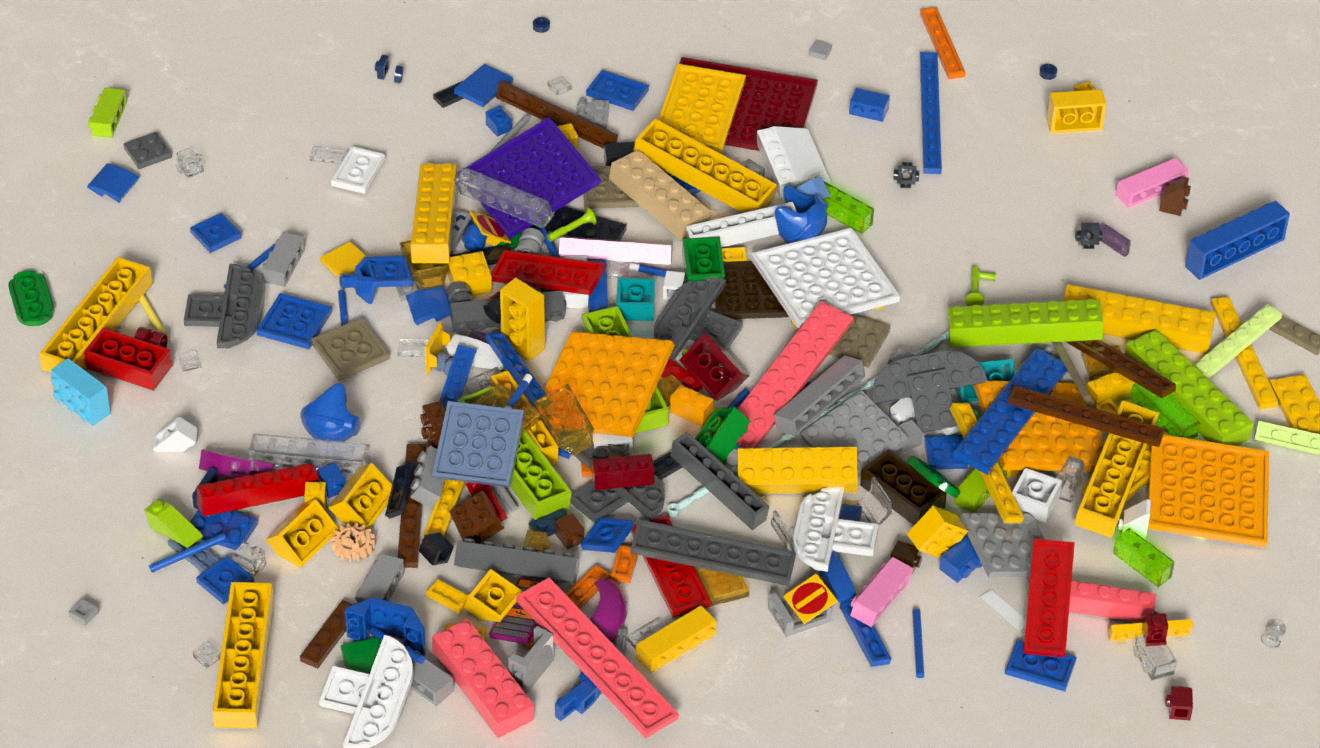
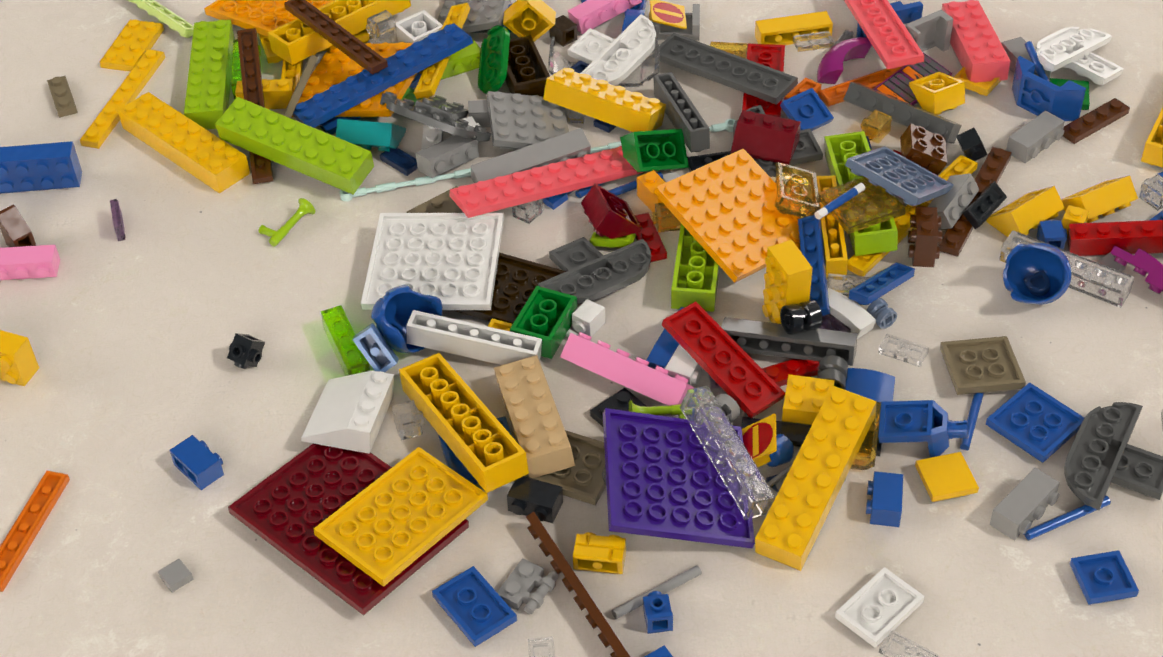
camera: 150 degrees left, 0 degrees up
(353, 542) = (1048, 175): light nougat gear -> none
(382, 231) = (886, 499): none -> blue brick
(435, 346) = (889, 320): yellow piece -> none
(447, 596) = (975, 114): yellow plate -> none
(569, 531) = (837, 124): reddish brown brick -> none
(636, 298) = (641, 308): teal brick -> none
(930, 113) = (135, 434): blue plate -> none
(941, 450) = (459, 93): blue plate -> none
(1093, 230) = (137, 225): black brick -> none
(1238, 340) = (125, 91): yellowish green plate -> none

